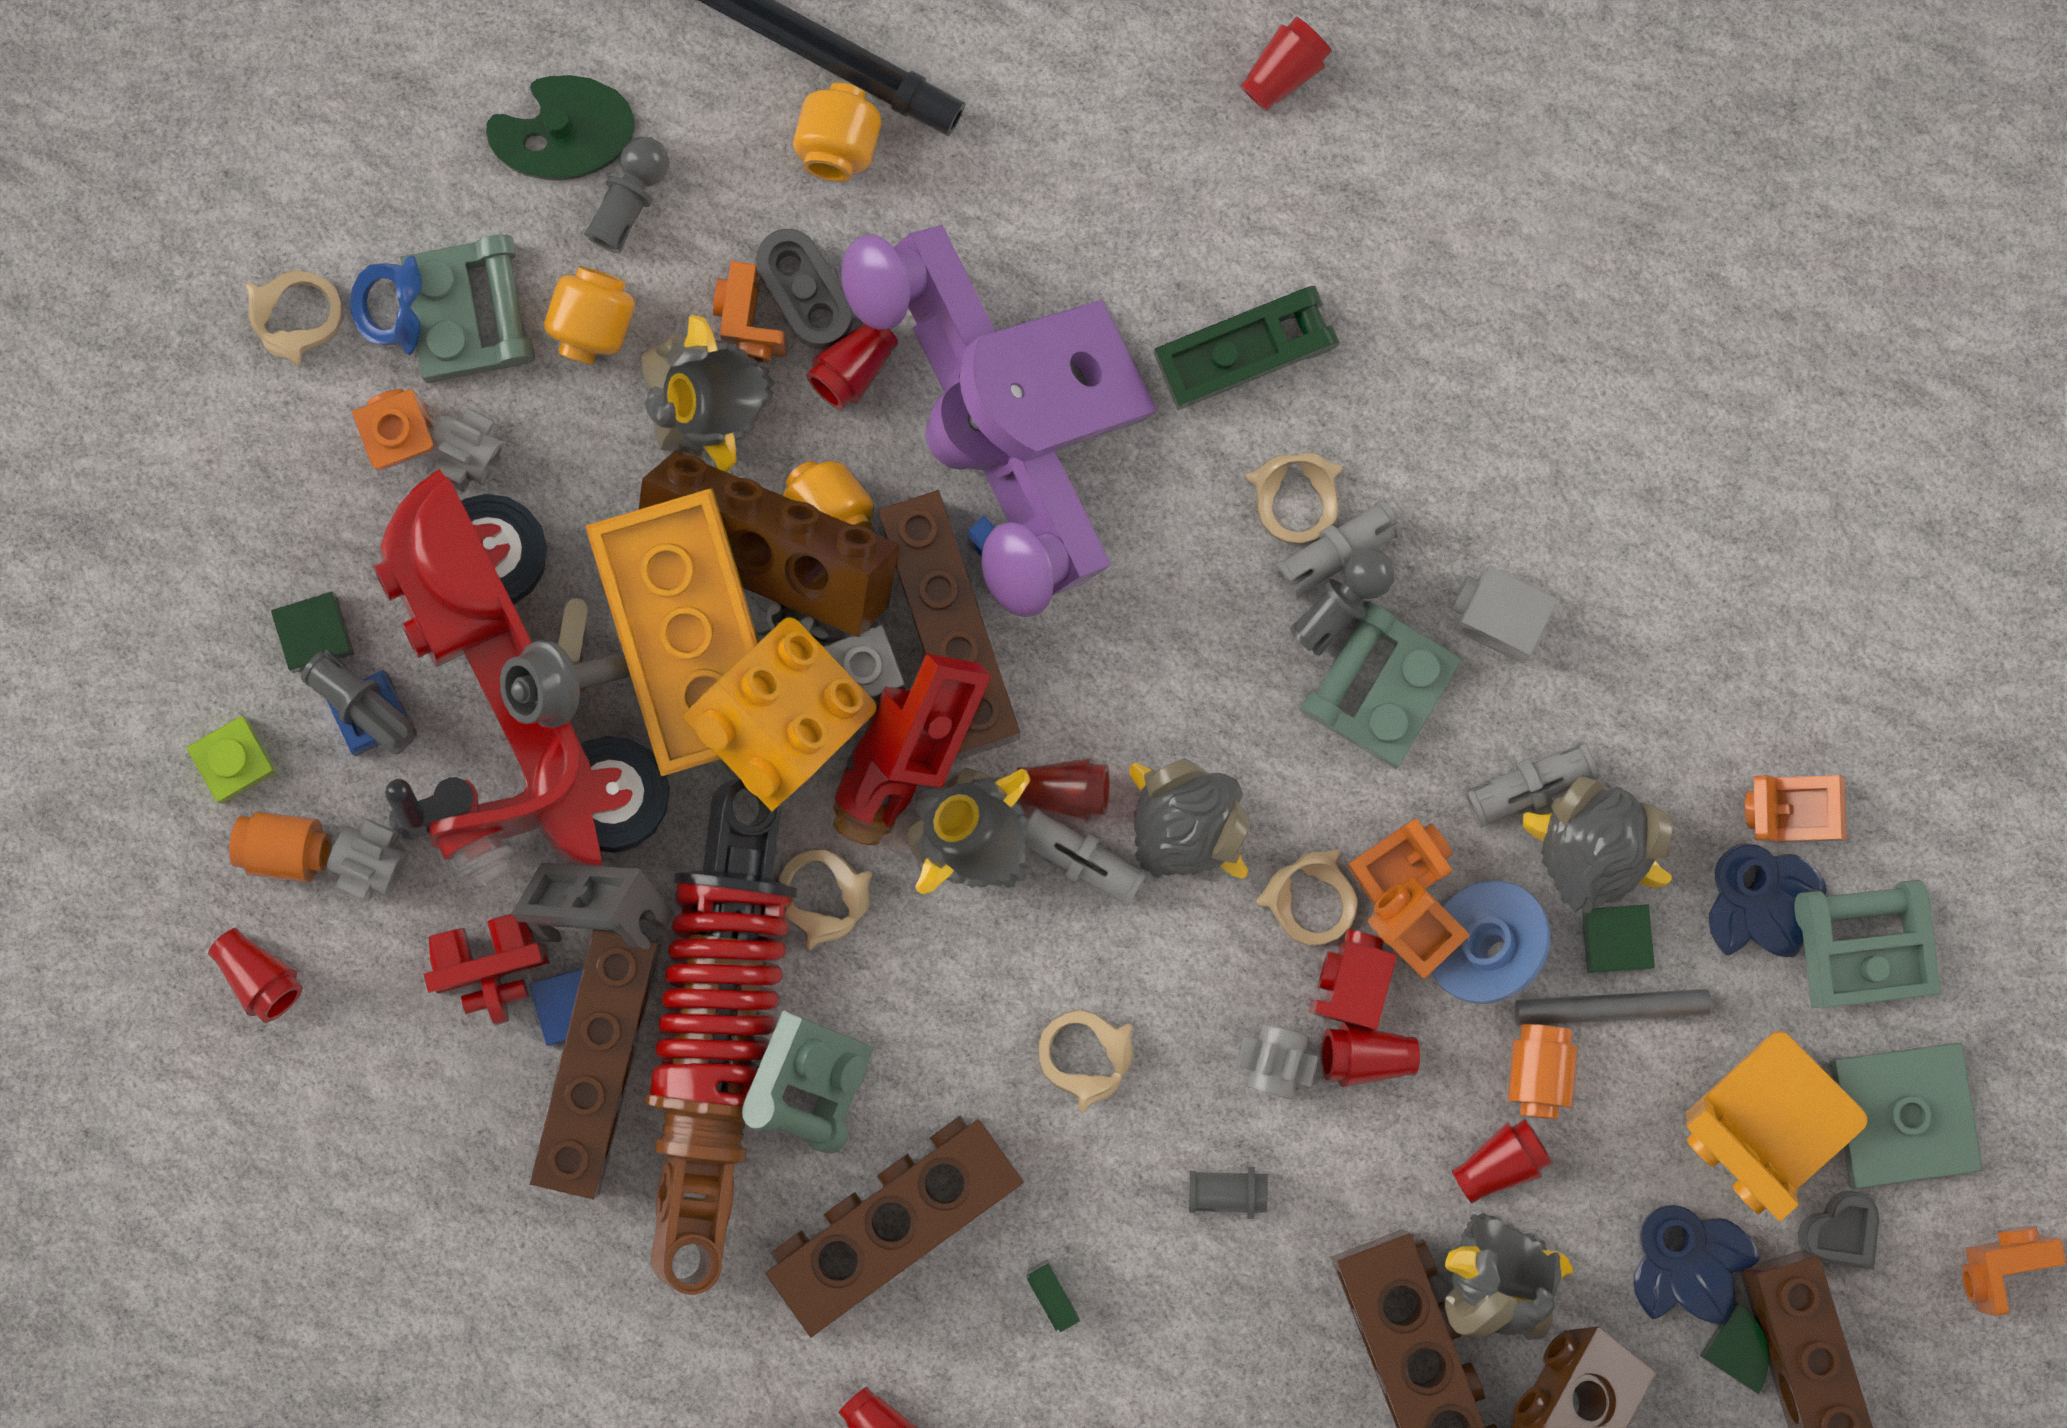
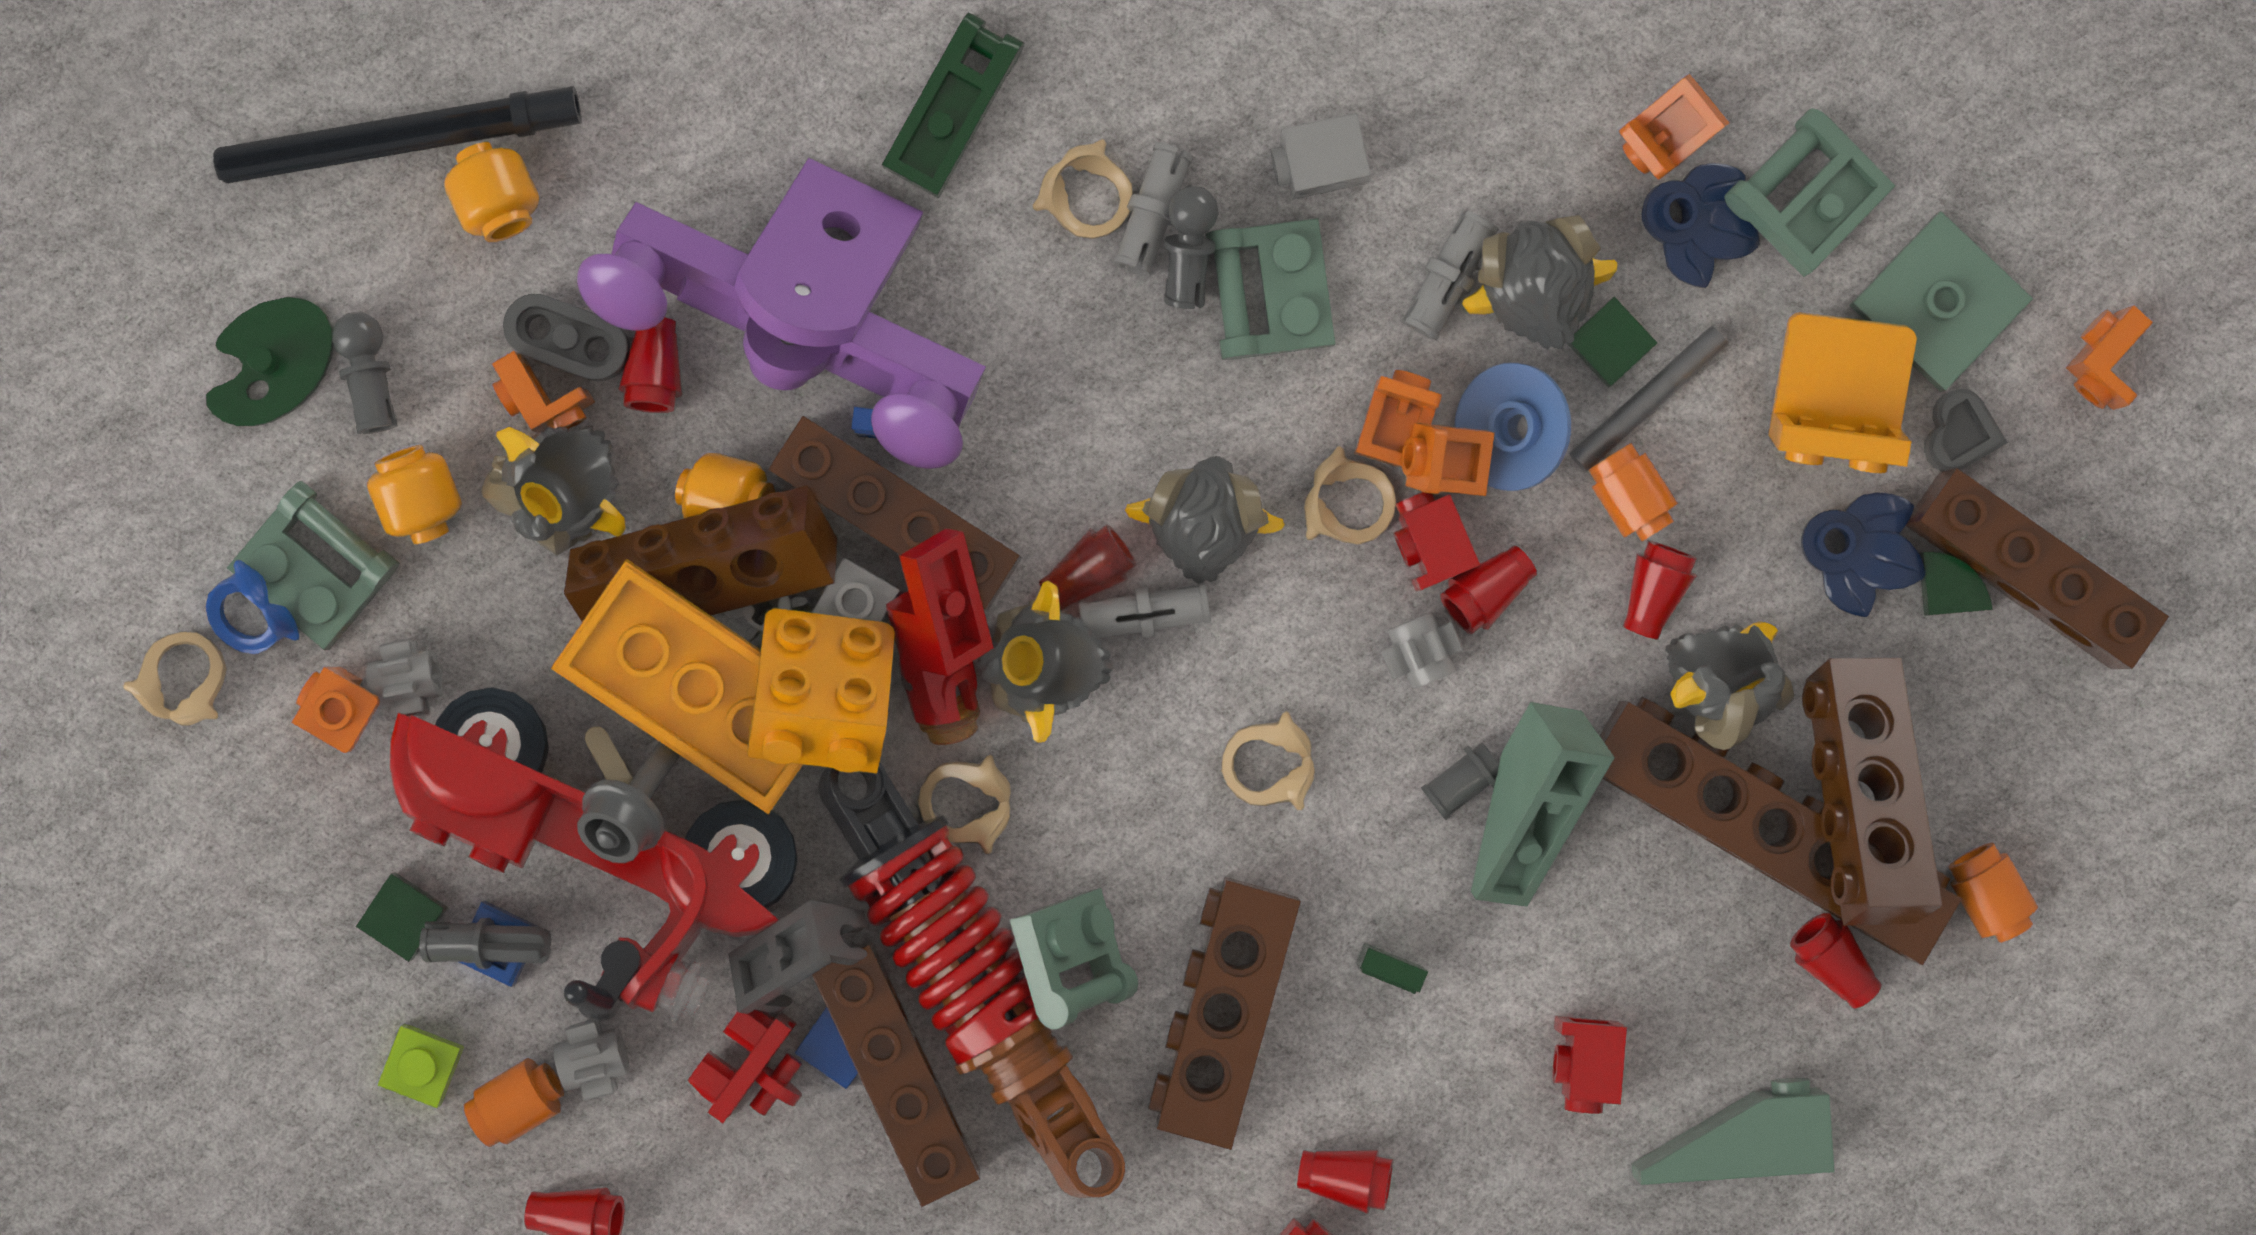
camera: 30 degrees left, 5 degrees up
(1274, 1254) = (1537, 799): none -> sand green slope

